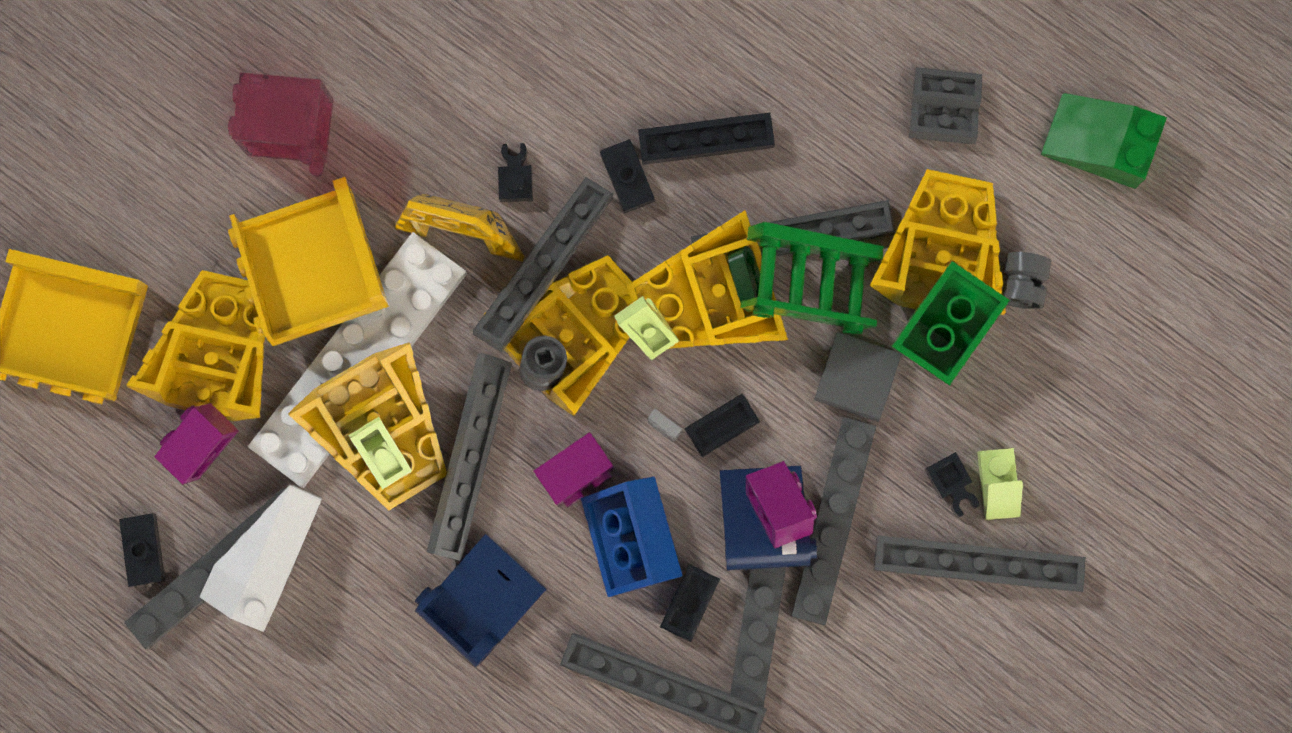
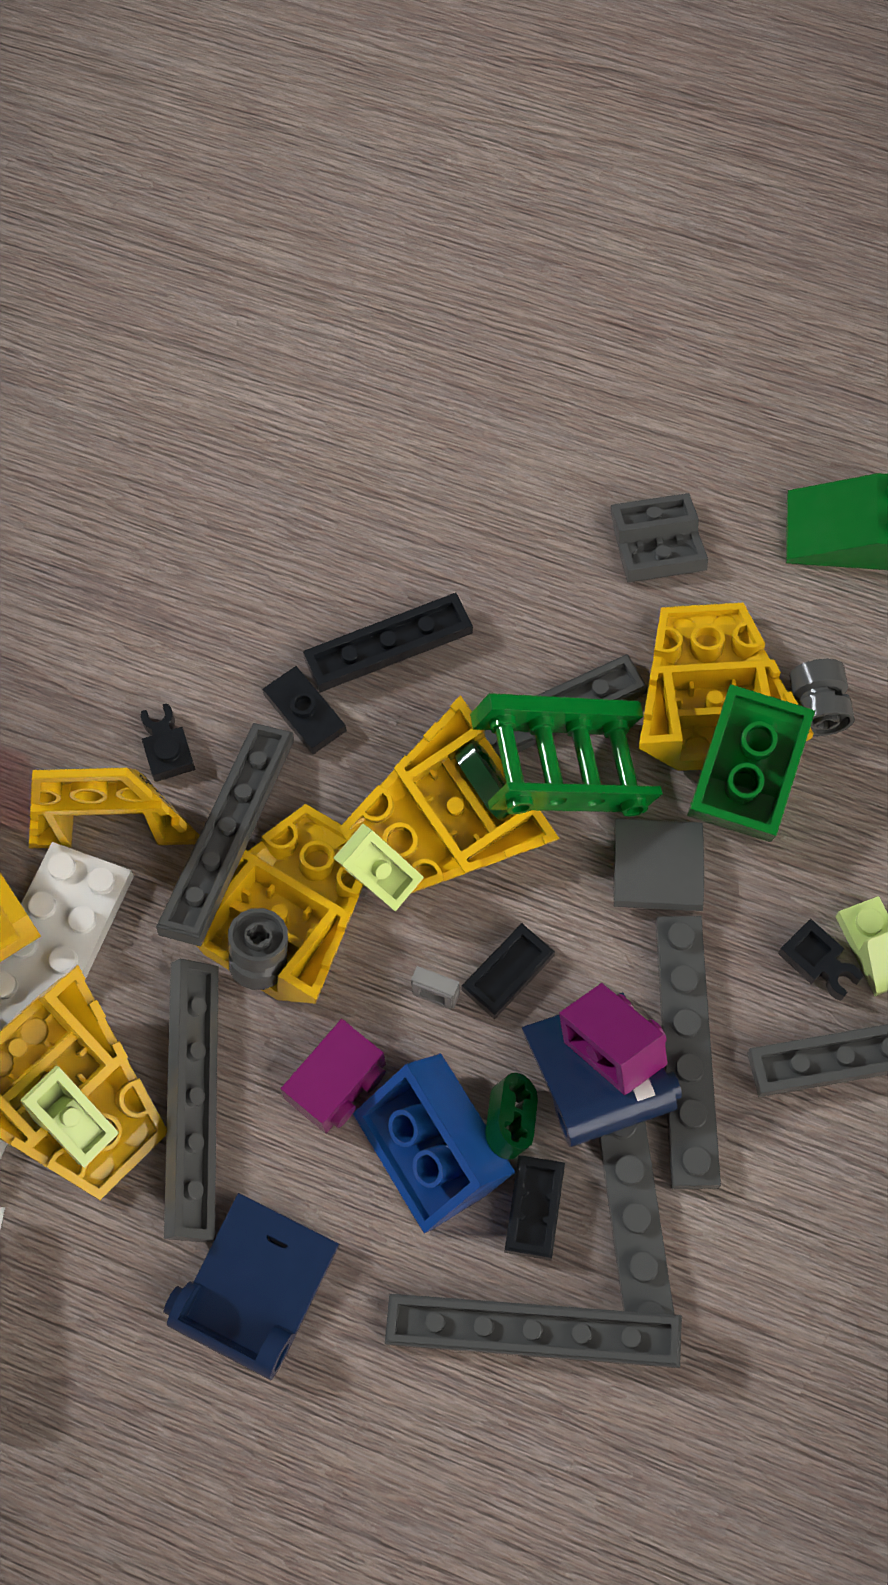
camera: 20 degrees left, 15 degrees down
(696, 538) = (520, 1118): none -> dark green beam

